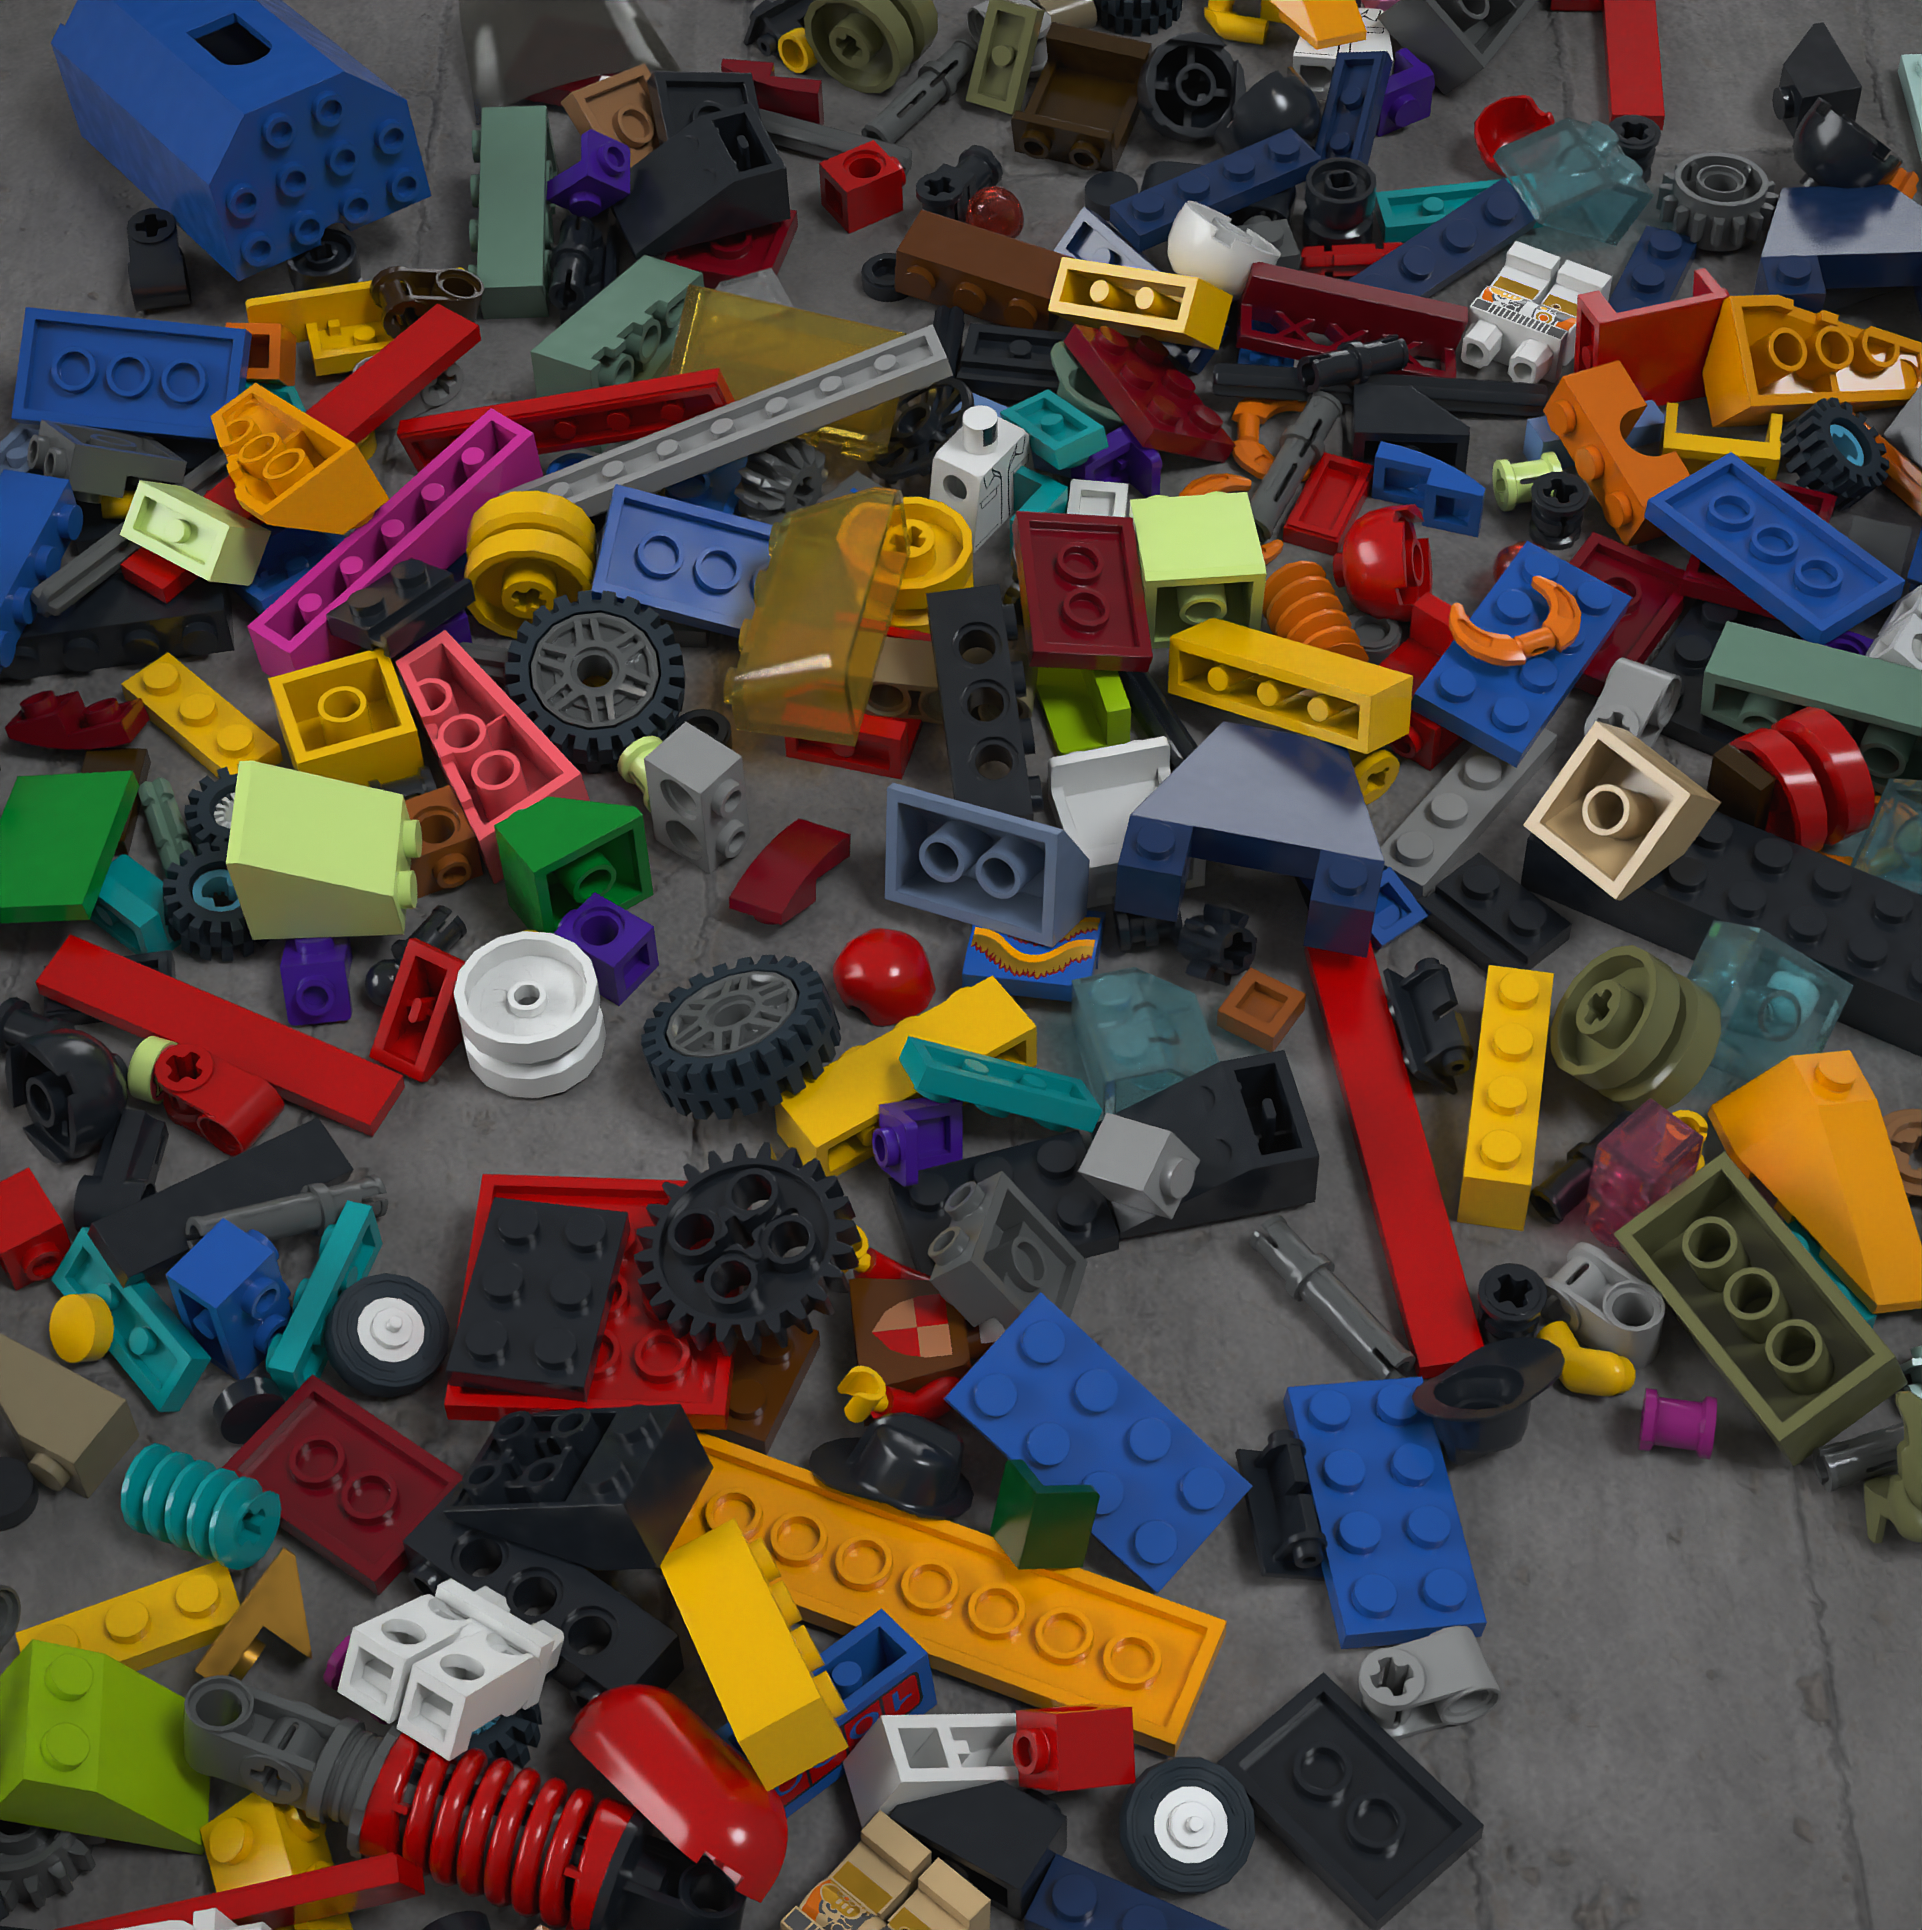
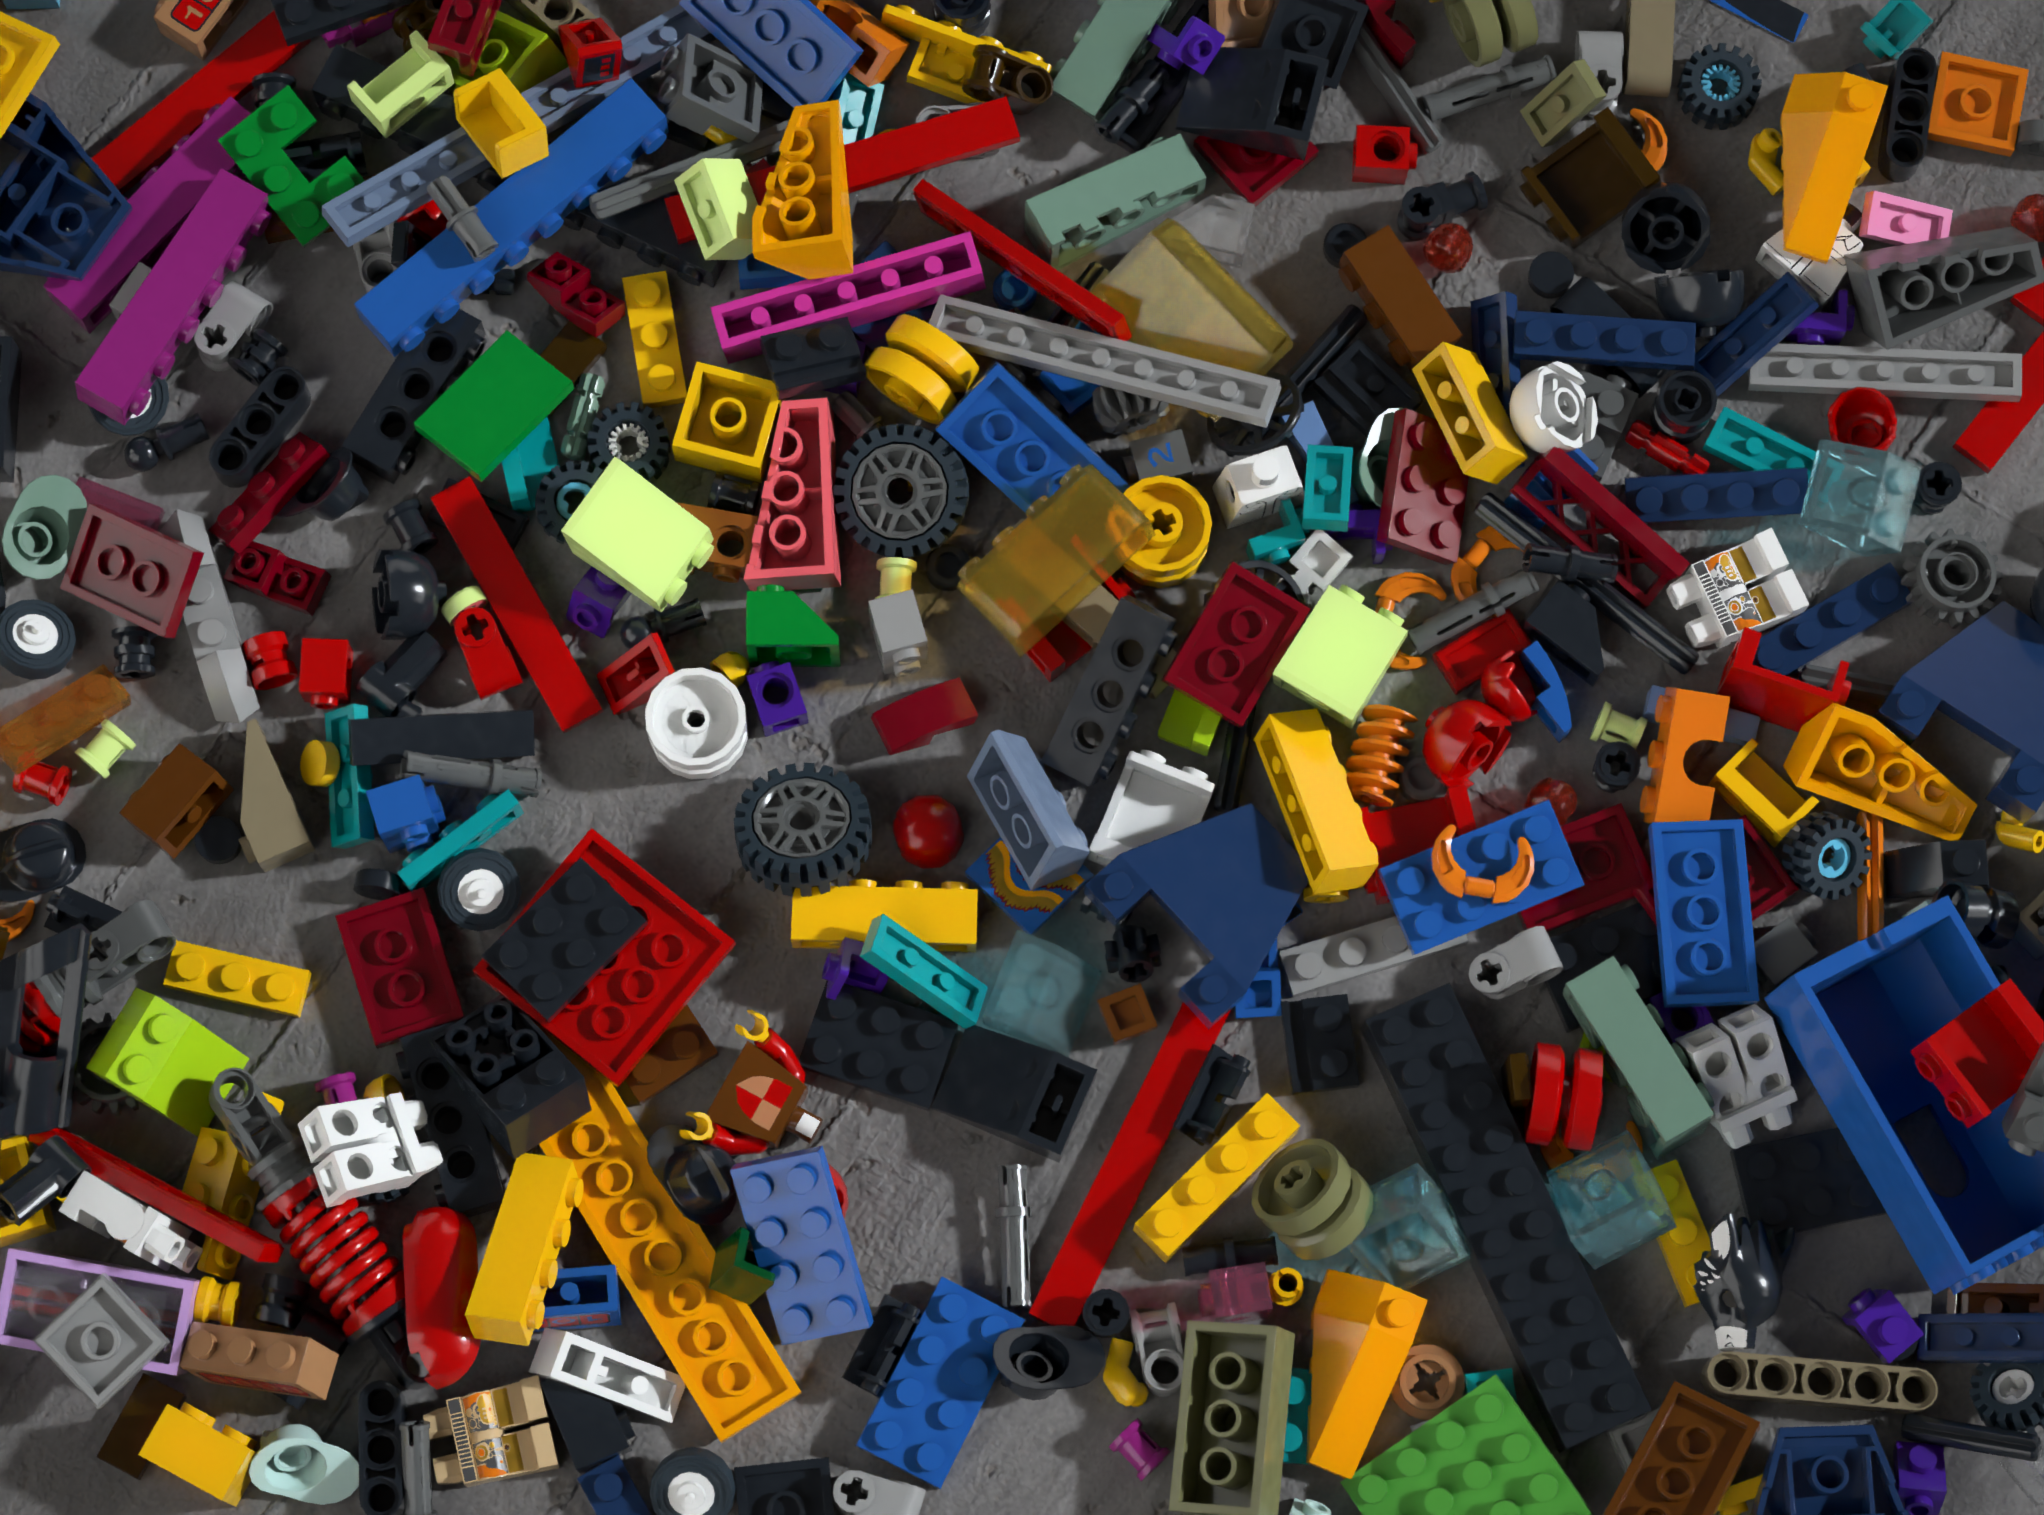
camera: 30 degrees right, 25 degrees up
(199, 1507) = (308, 936): teal piece -> none
(271, 1603) = (305, 1027): pearl gold slope -> none
(778, 1288) = (689, 1035): black gear -> none
(1002, 1254) = (837, 1097): dark grey plate -> none
(1074, 1747) = (660, 1412): red brick -> none
(1139, 1165) = (960, 1084): light grey brick -> none
(1377, 489) = (1508, 687): none -> red hair
(1534, 73) = (1890, 371): none -> light grey plate
(1620, 811) = (1421, 1053): tan slope -> none

